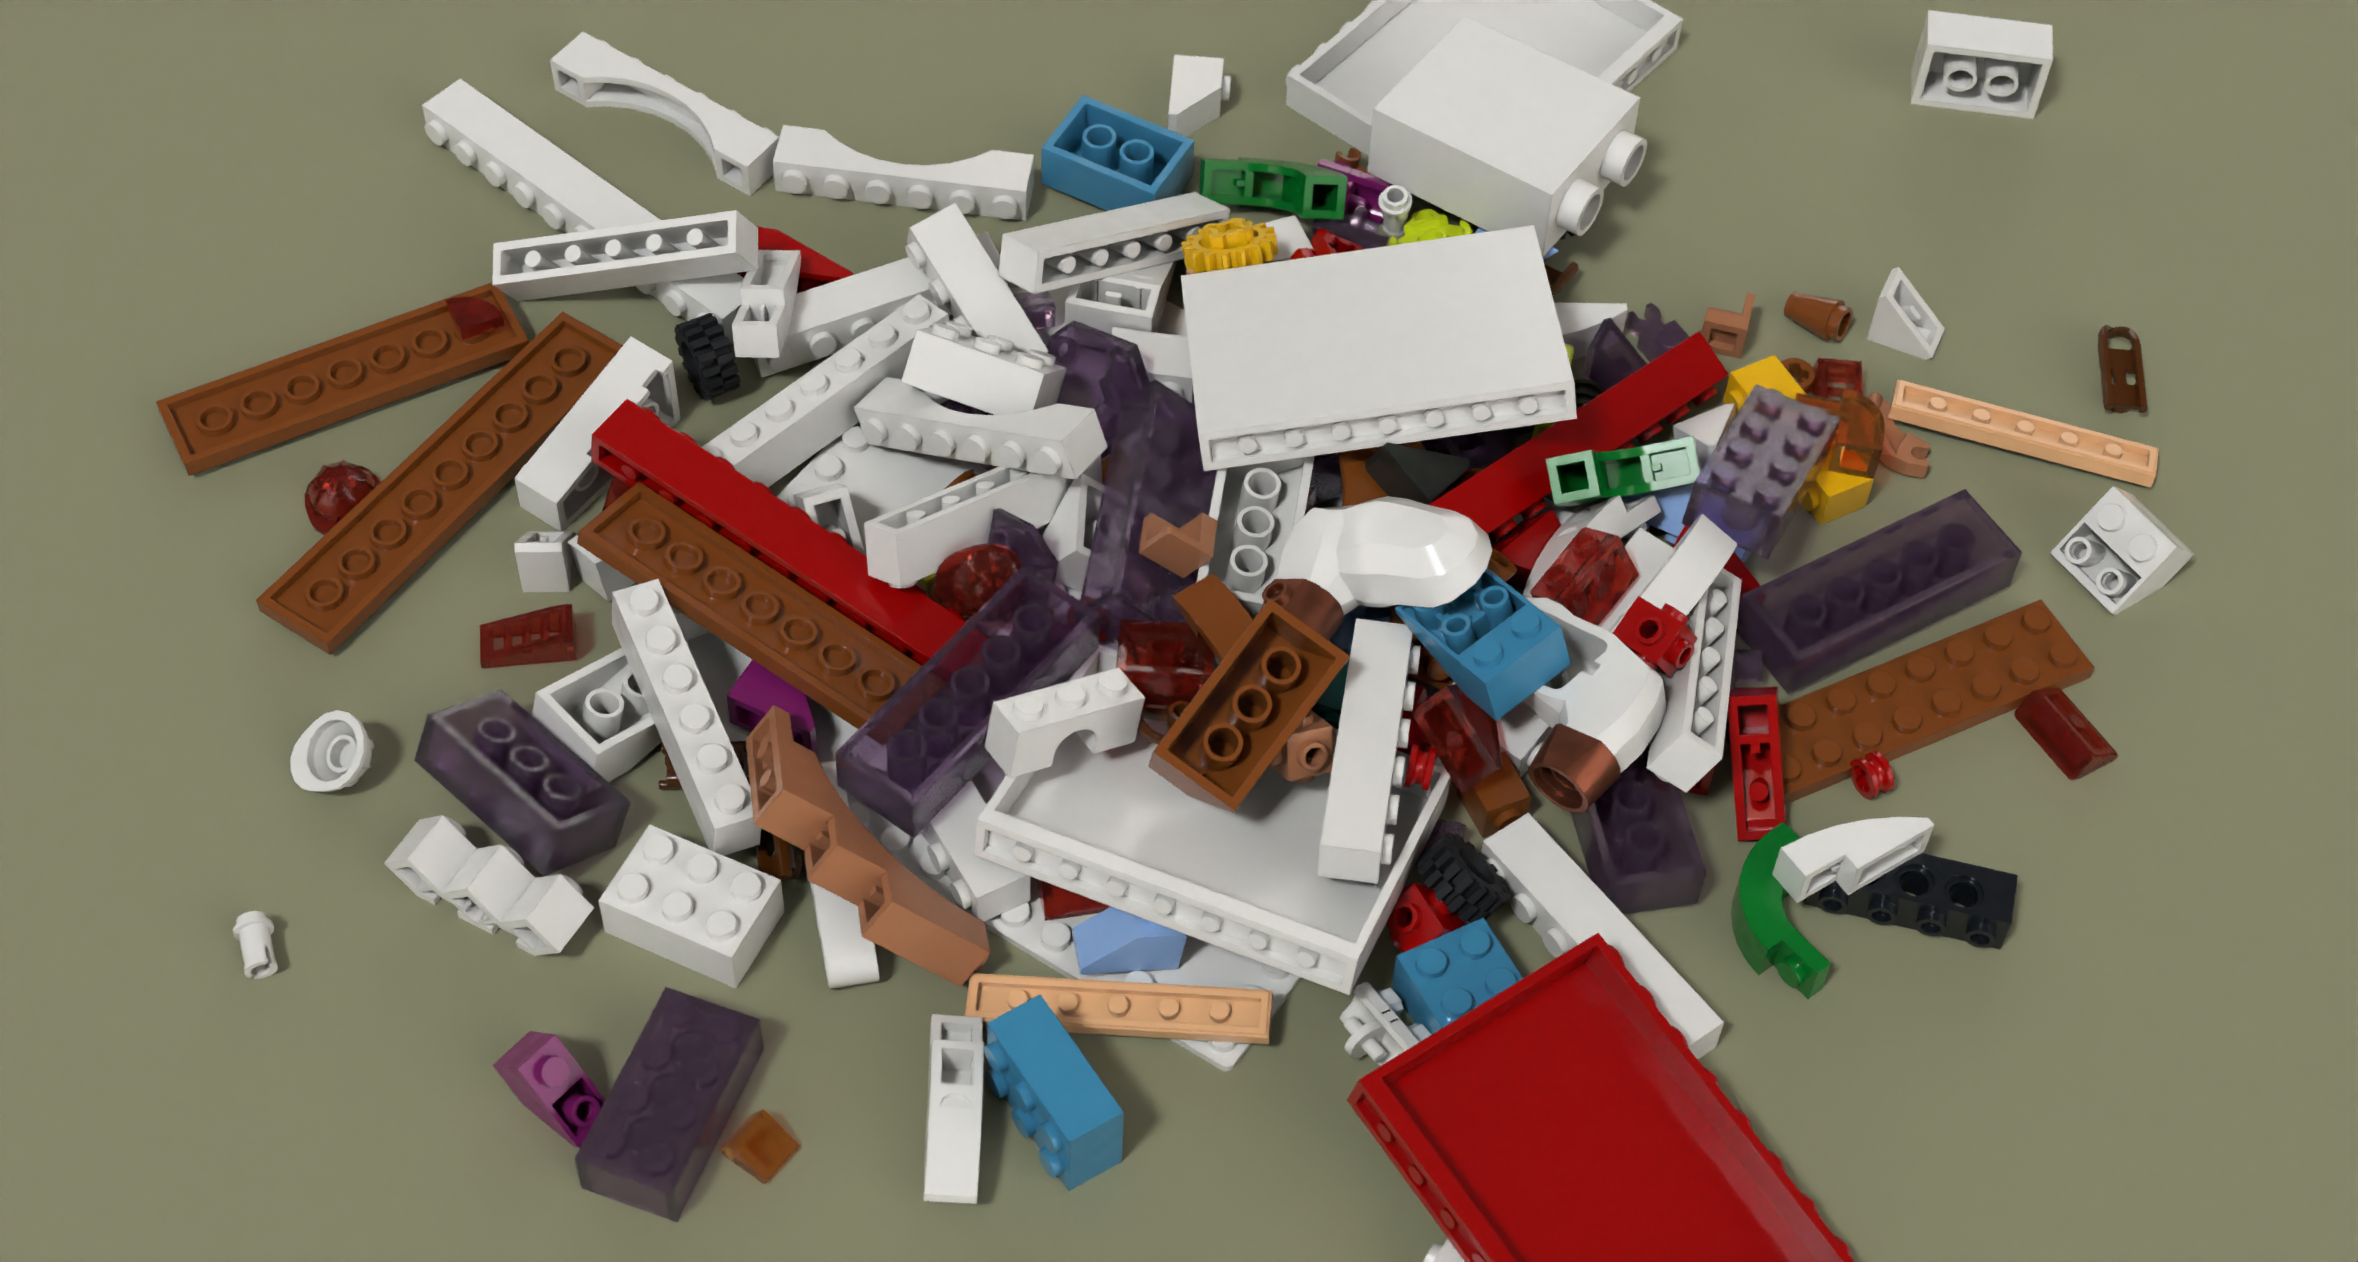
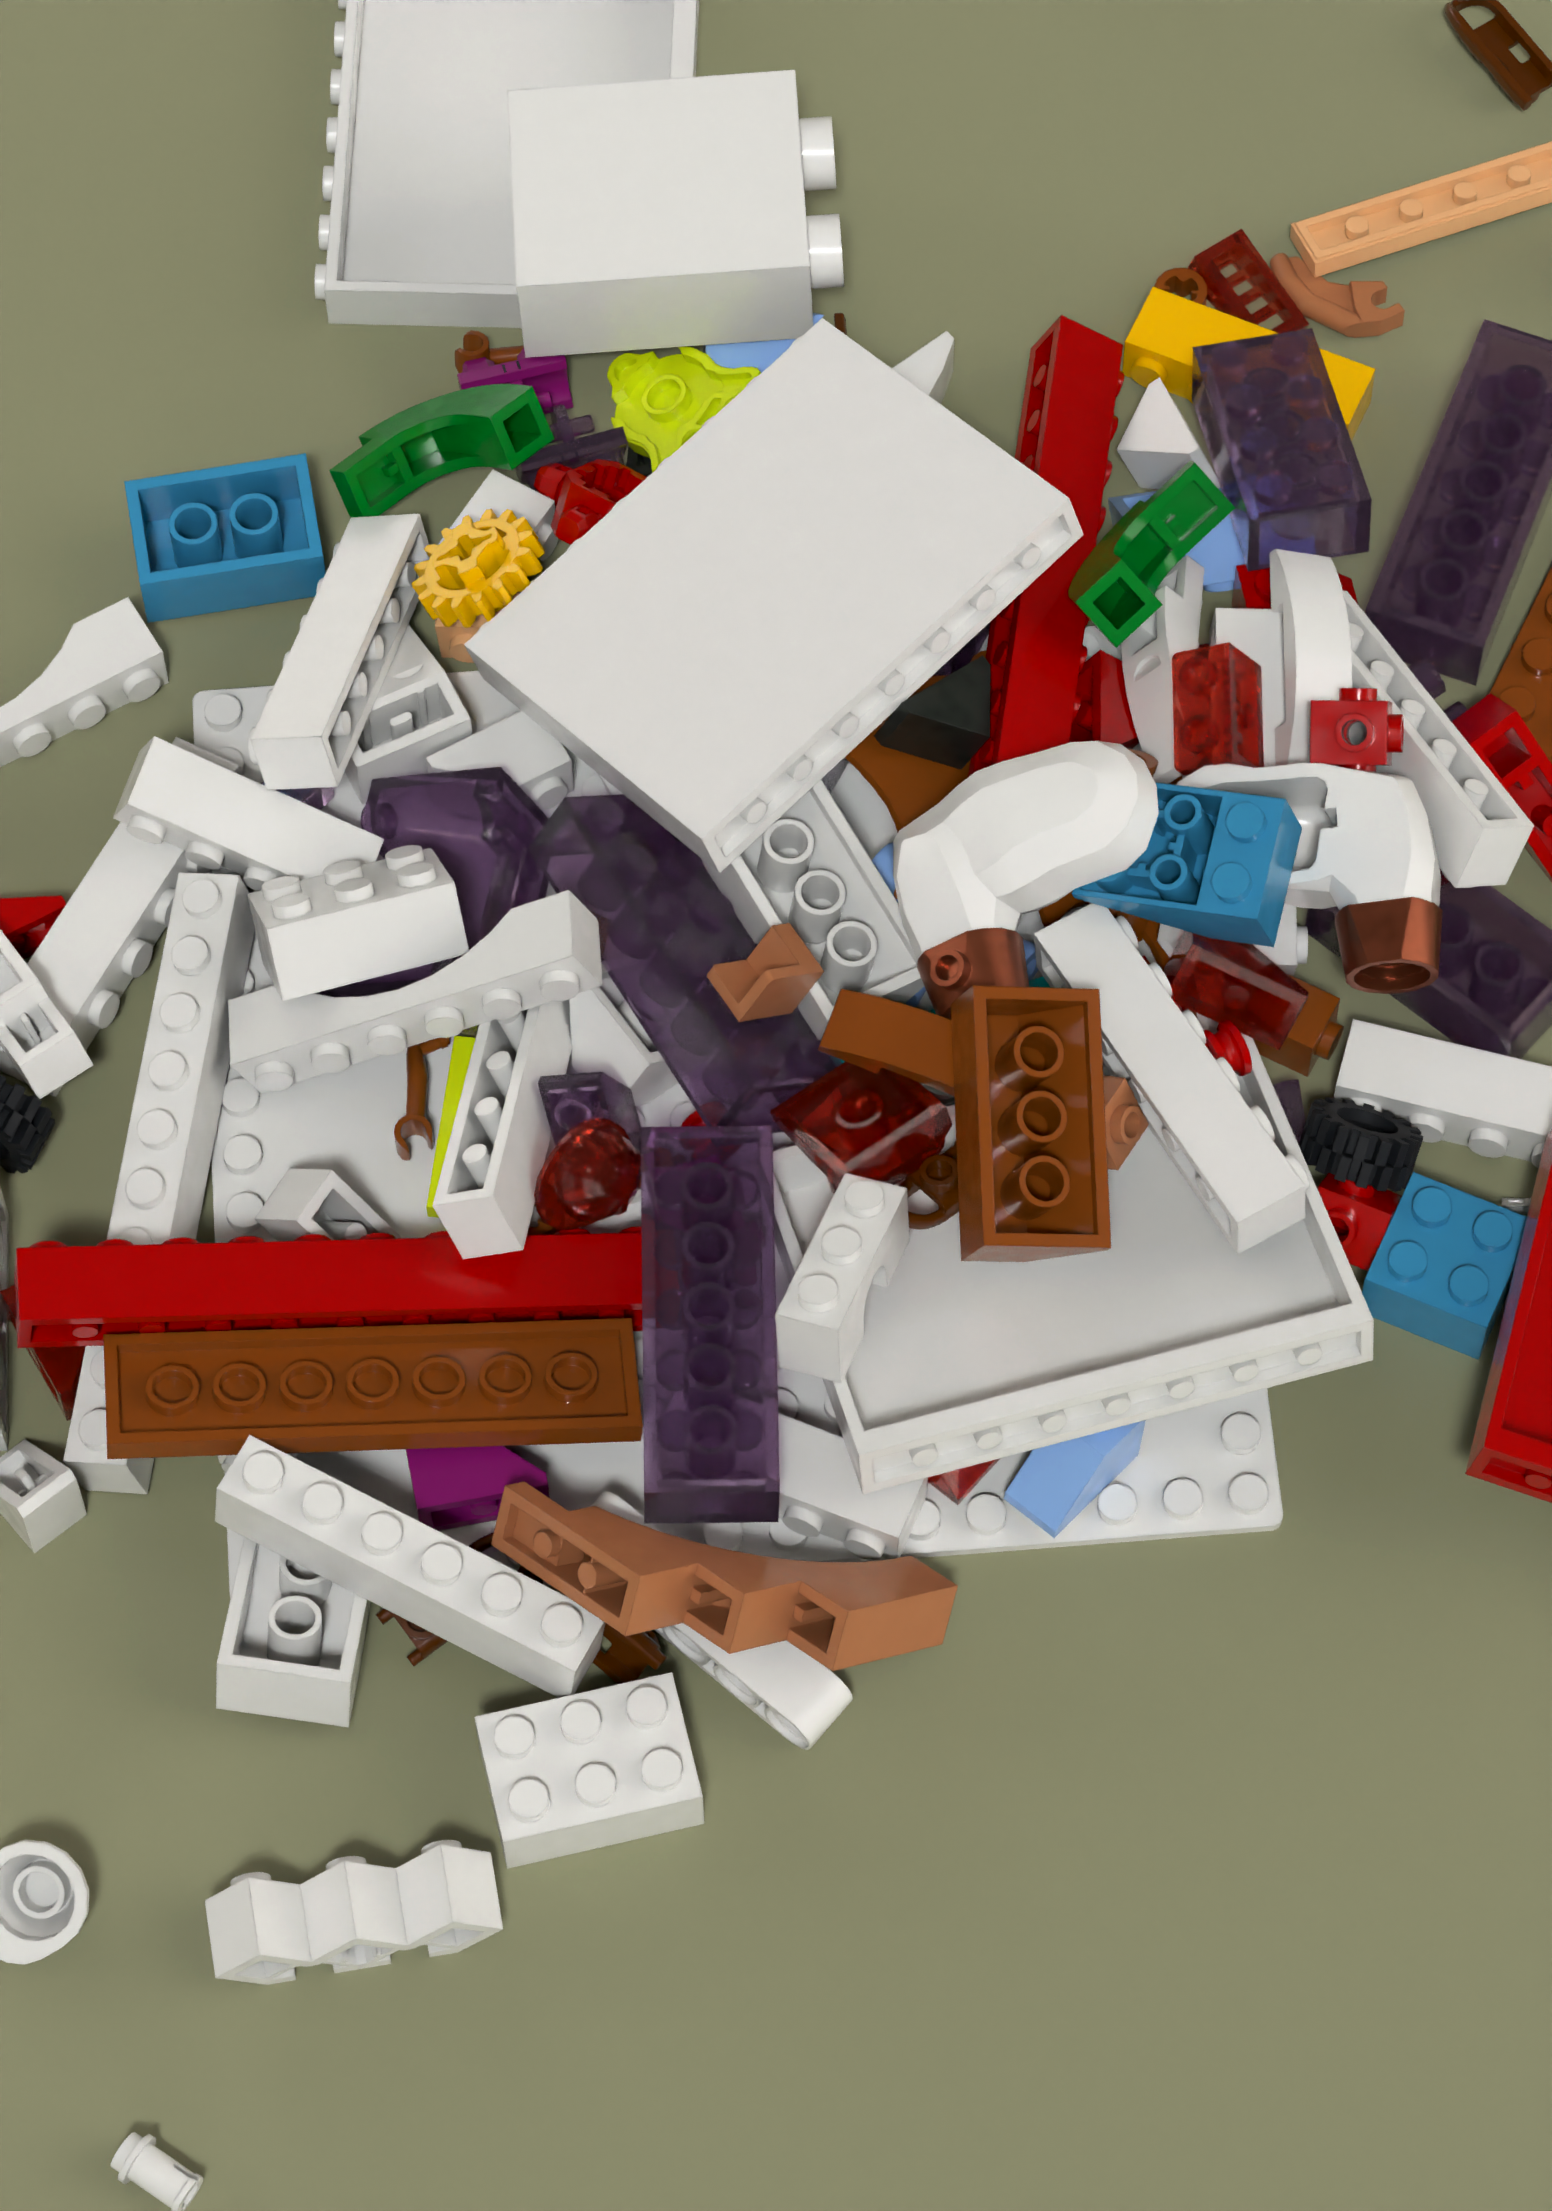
camera: 35 degrees left, 10 degrees up
(522, 781) = (284, 1773): clear purple brick -> none
(544, 650) = (106, 1569): clear red slope -> none
(551, 1085) = (631, 2075): magenta slope -> none
(670, 1104) = (773, 1998): clear purple brick -> none
(759, 1146) = (891, 1971): clear orange slope -> none
(954, 1109) = (1067, 1776): white slope -> none
(1053, 1093) = (1156, 1686): dark azure brick -> none
(1131, 1007) = (1124, 1544): light nougat tile -> none
(1196, 93) = (224, 384): white slope -> none
(1376, 1025) = (1410, 1371): white hips -> none
(1395, 204) = (588, 379): white pin -> none
(1610, 356) = (987, 406): slope -> none
(1653, 334) = (1000, 347): clear purple plate -> none
(1727, 329) = (1061, 281): nougat panel -> none
(1820, 315) = (1144, 198): dark orange cone -> none
(1858, 435) = (1338, 322): clear orange brick -> none
(1904, 319) = (1237, 143): white slope -> none

